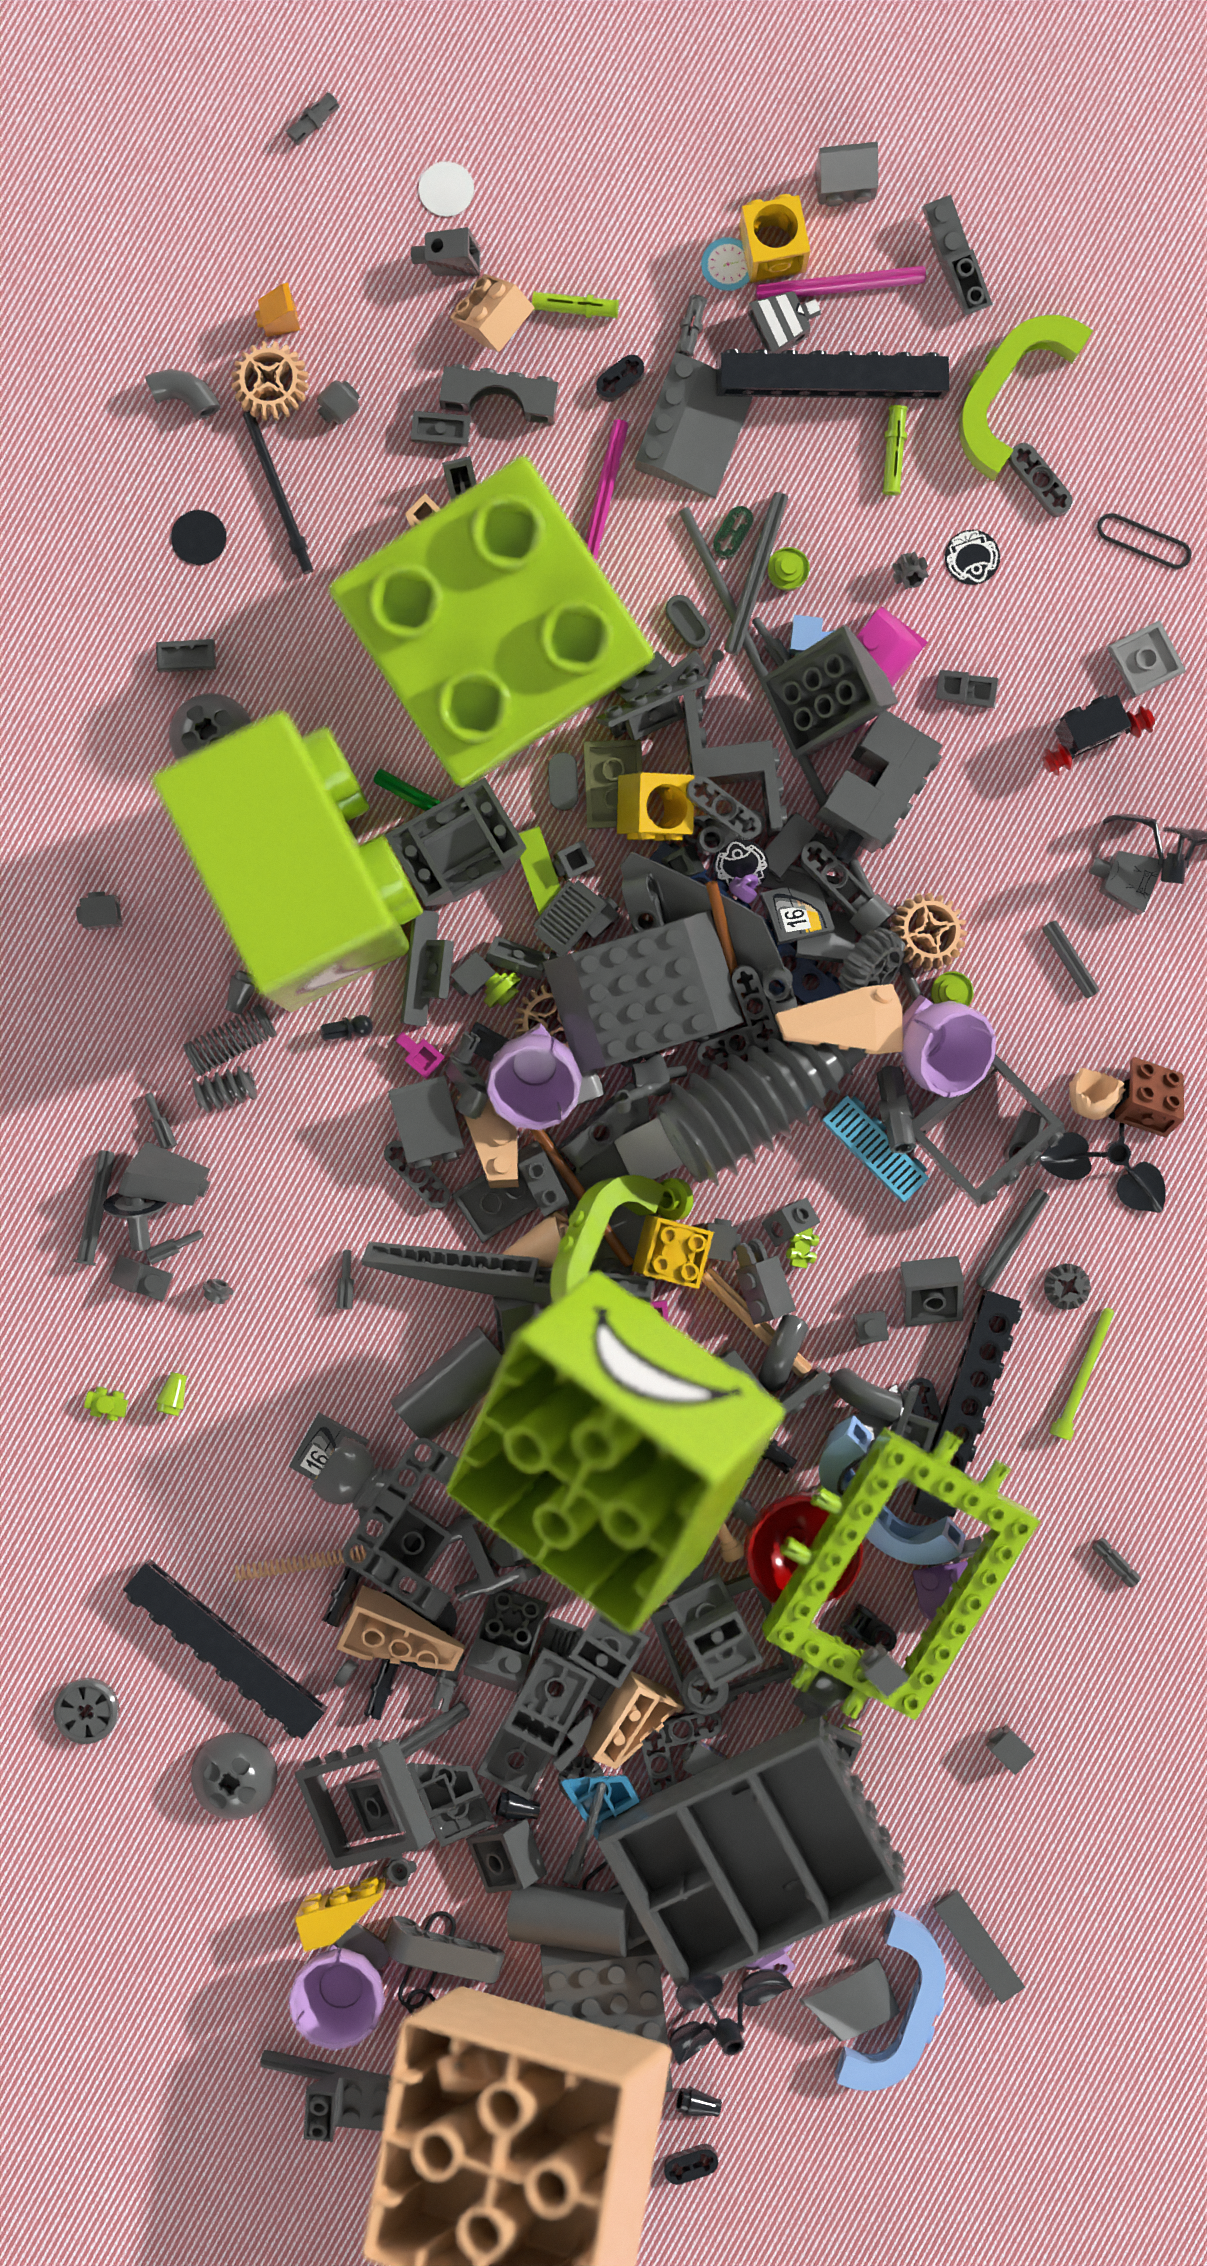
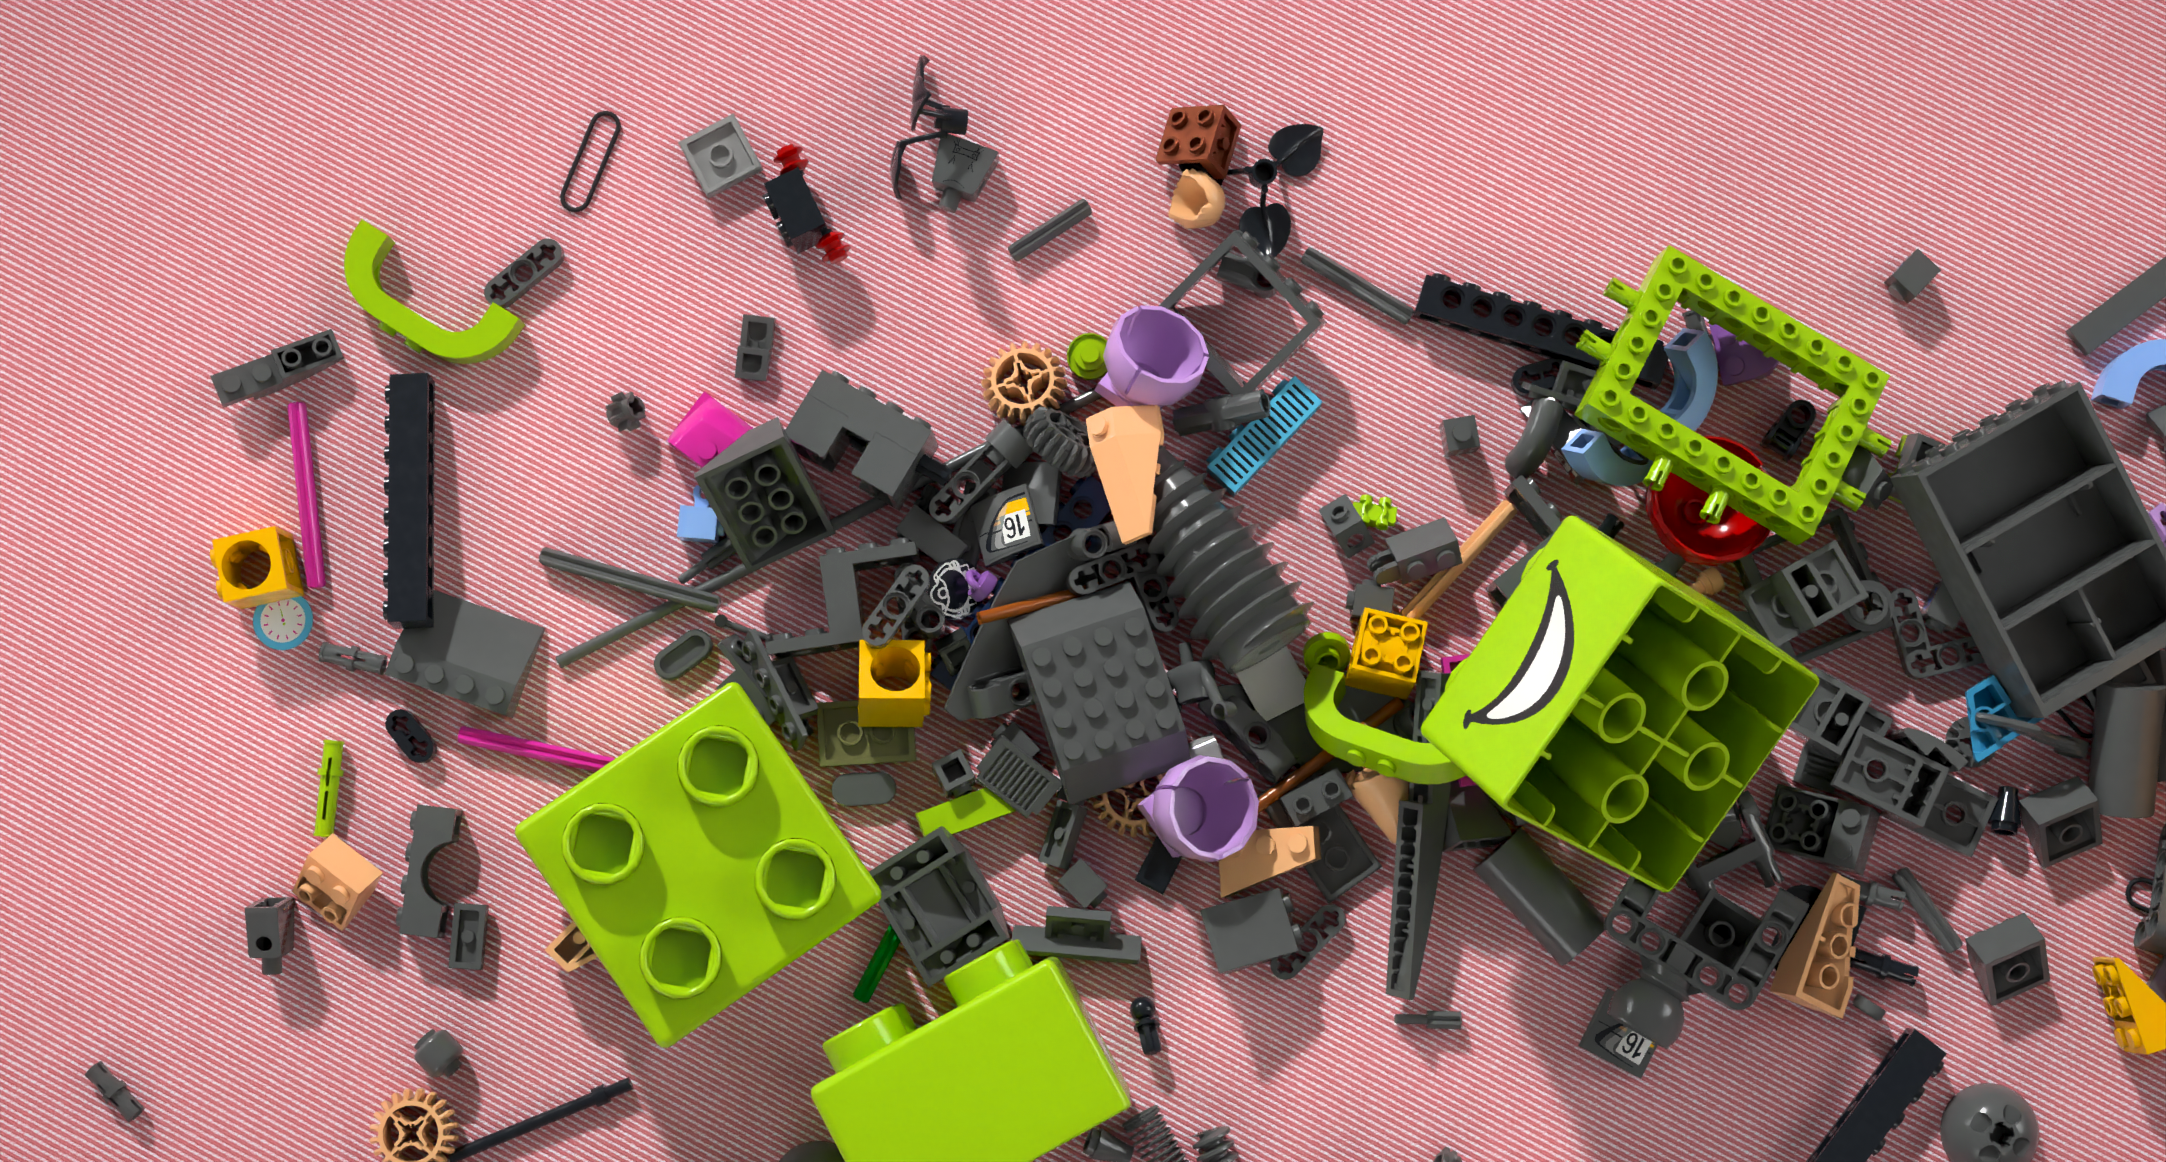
camera: 85 degrees left, 5 degrees down
(277, 312) = (336, 1125): light orange slope -> none
(289, 1568) = (1738, 999): light nougat piece -> none
(341, 1596) = (1784, 1014): black pin -> none
(400, 1787) = (1996, 937): dark grey window -> none
(400, 1878) = (2092, 943): dark grey plate -> none
(422, 1057) = (1175, 939): dark pink plate -> none
(446, 188) = (195, 937): white sticker -> none
(452, 1800) = (2002, 885): dark grey slope -> none
(459, 476) = (533, 910): dark grey slope -> none
(466, 1078) = (1201, 886): dark grey beam -> none
(501, 989) = (1099, 851): lime plate -> none
(629, 1718) = (1902, 688): light nougat wedge -> none
(727, 529) = (588, 601): clear green beam -> none
(782, 320) = (348, 558): dark grey torso -> none
(782, 1352) = (1491, 530): dark grey cylinder -> none
(788, 569) = (624, 545): lime plate -> none
(847, 173) = (186, 489): slope -> none
(882, 1670) = (1839, 409): dark grey brick -> none
(894, 450) = (494, 432): lime pin -> none
(932, 1291) = (1417, 370): dark grey slope -> none
(972, 557) = (609, 345): black sticker -> none
(1053, 1288) = (1392, 228): dark grey gear -> none
(1064, 1426) = (1558, 226): lime piece -> none
(1116, 1562) = (1703, 168): dark grey axle -> none

